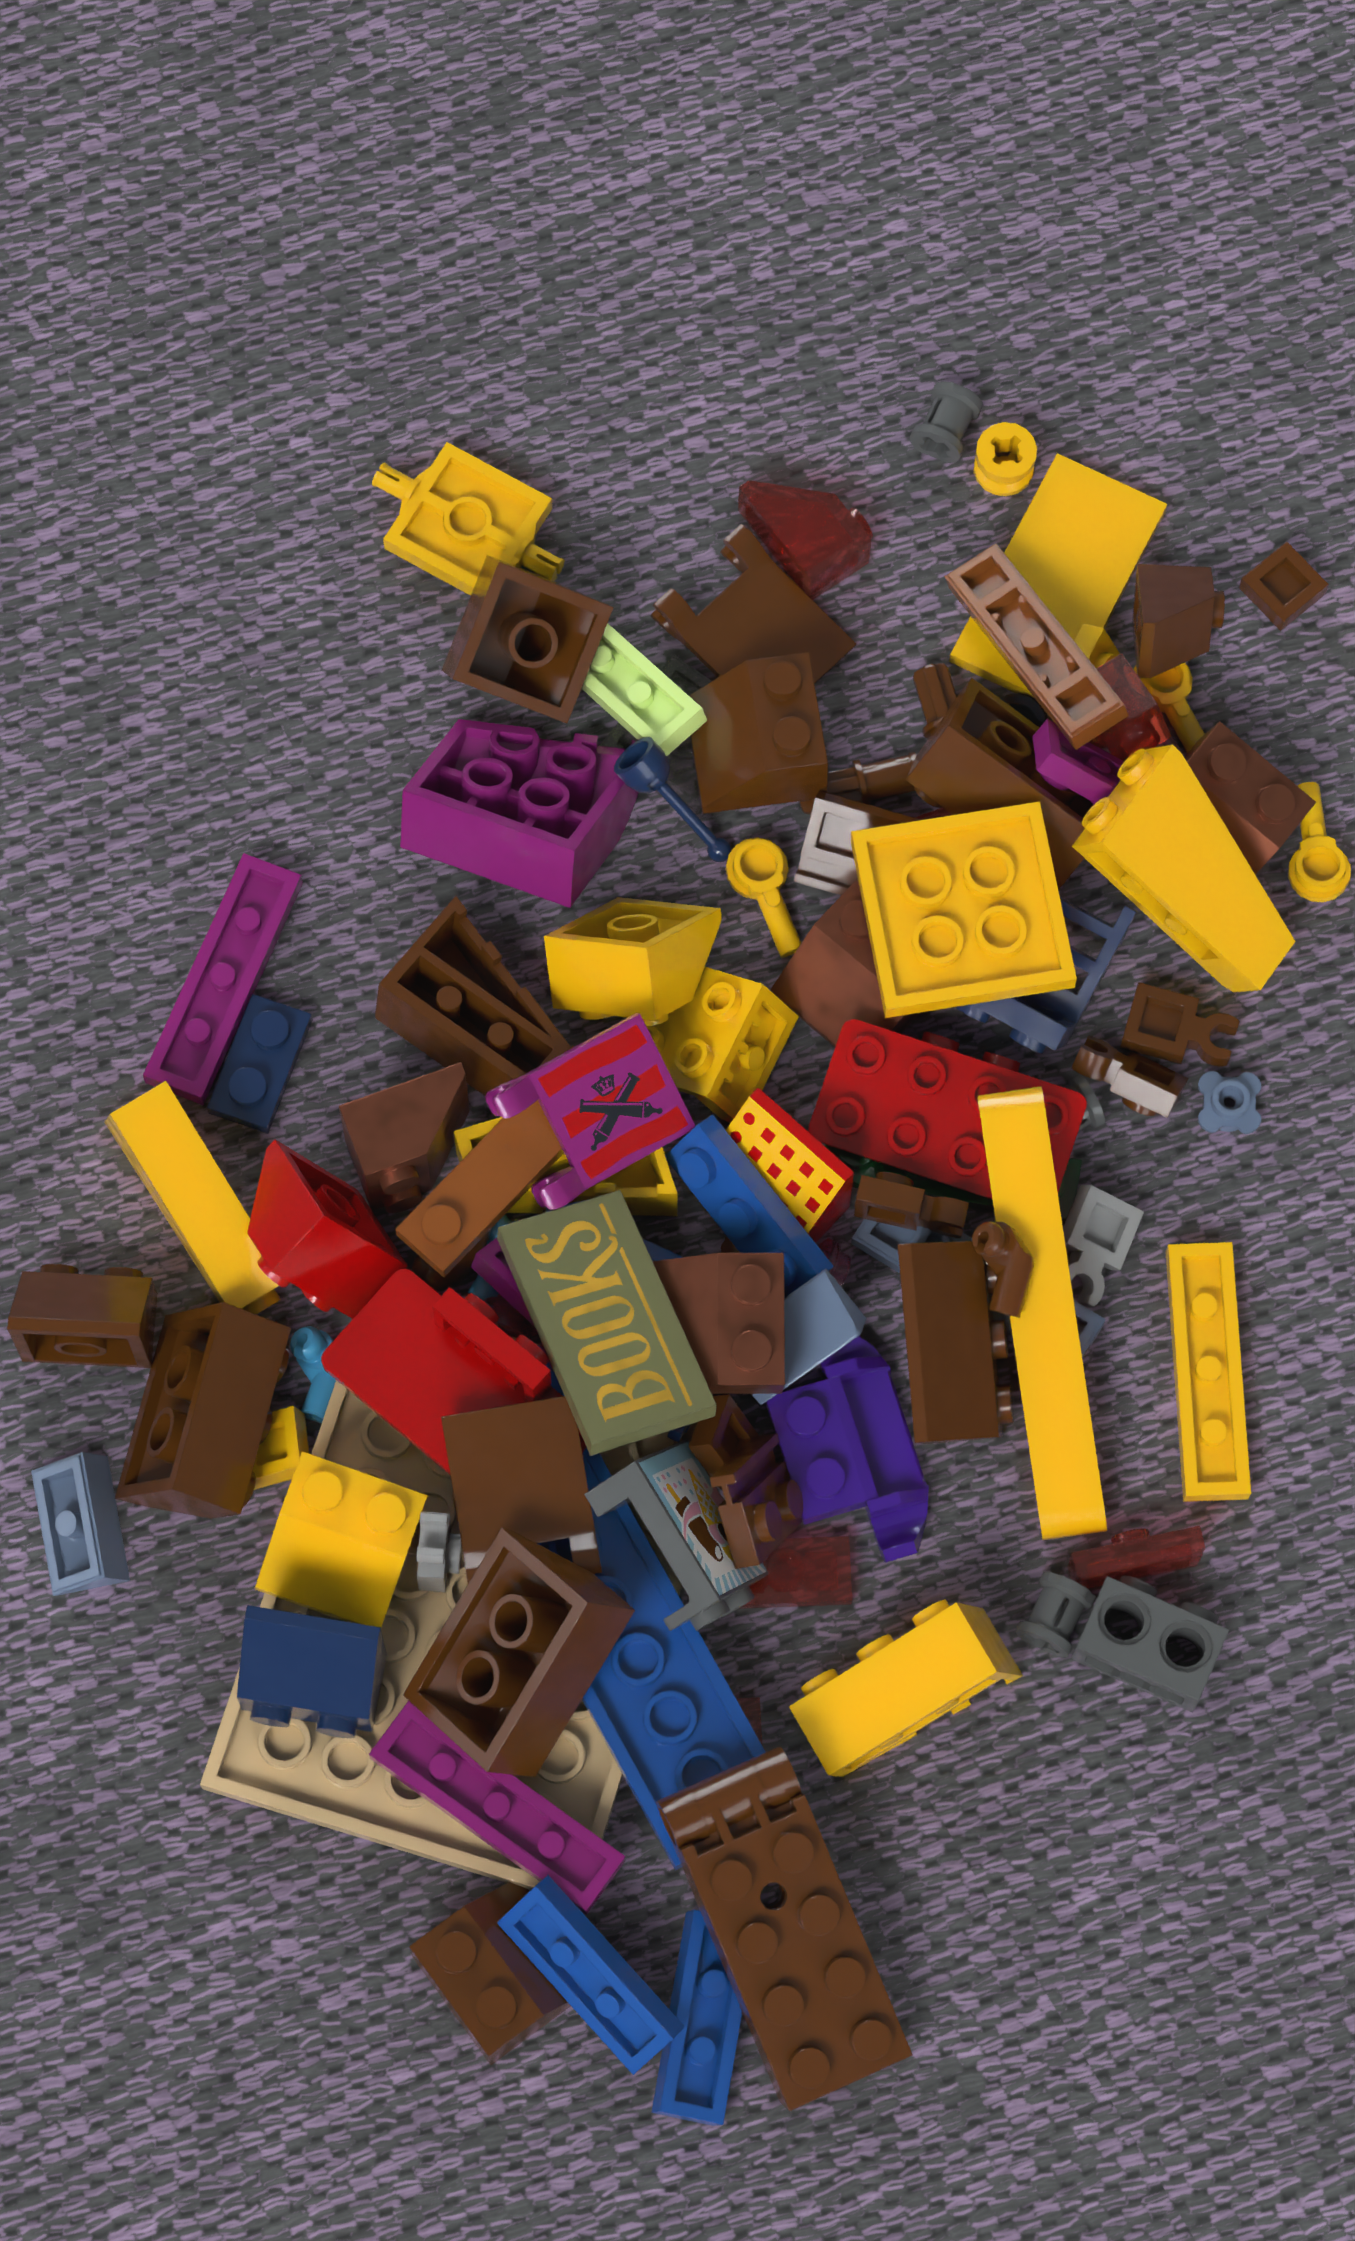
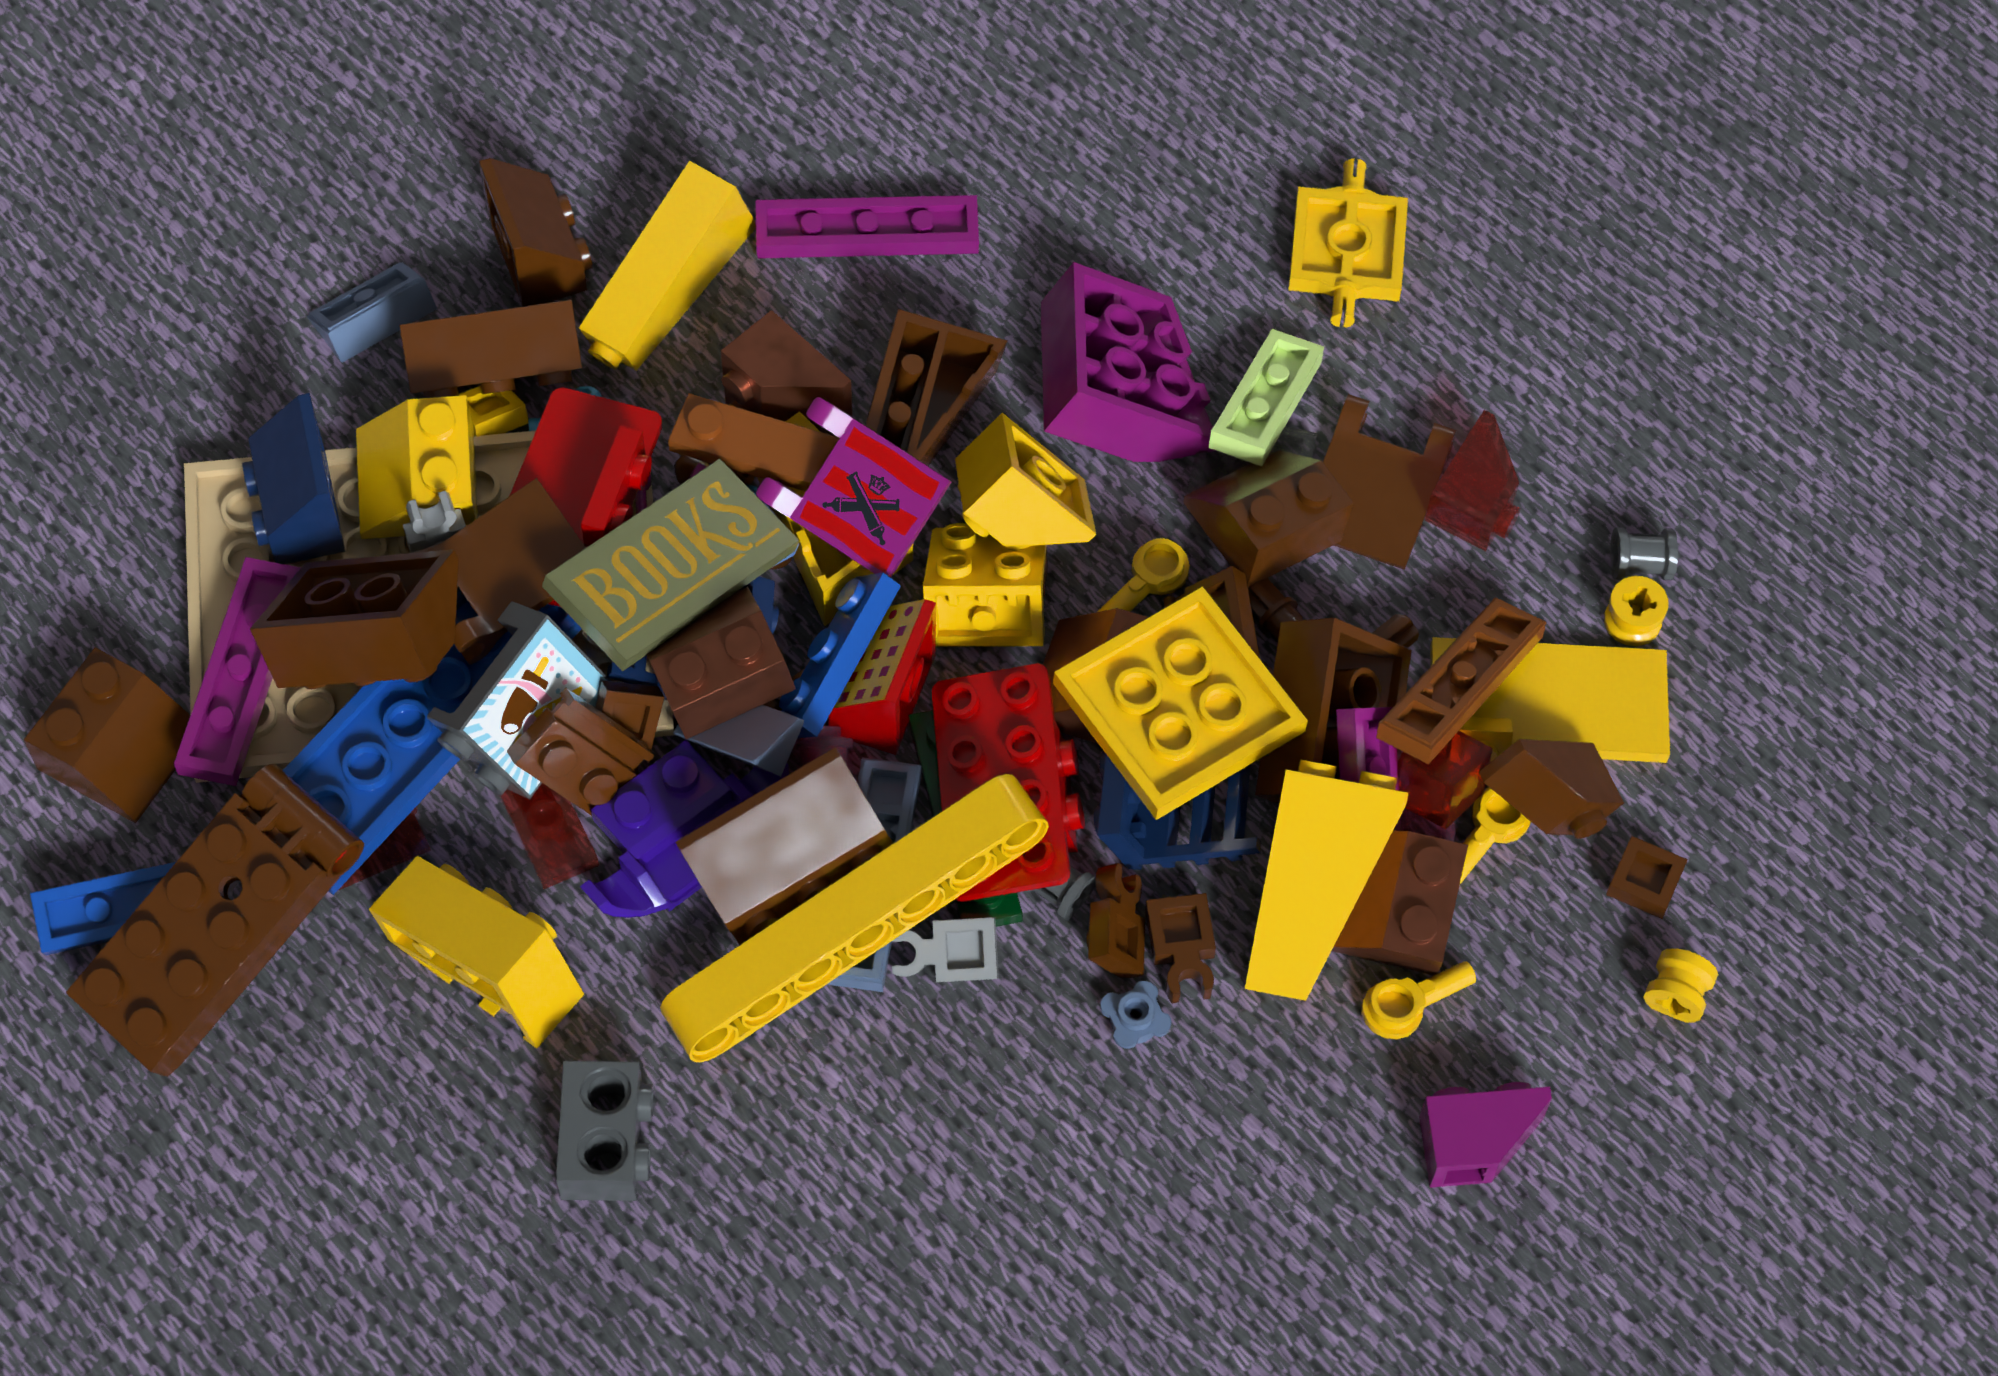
camera: 65 degrees right, 10 degrees down
(260, 1063) = (810, 282): dark blue plate -> none
(318, 1234) = (669, 348): red slope -> none
(527, 639) = (1260, 305): reddish brown slope -> none
(590, 1974) = (124, 794): blue plate -> none
(645, 770) = (1188, 433): dark blue hinge -> none
(895, 1202) = (902, 763): reddish brown plate -> none
(1009, 1261) = (874, 856): reddish brown arm -> none
(1055, 1614) = (596, 1042): dark grey bush -> none
(1137, 1555) = (676, 1089): clear red plate -> none
(1208, 1372) = (875, 1089): yellow plate -> none

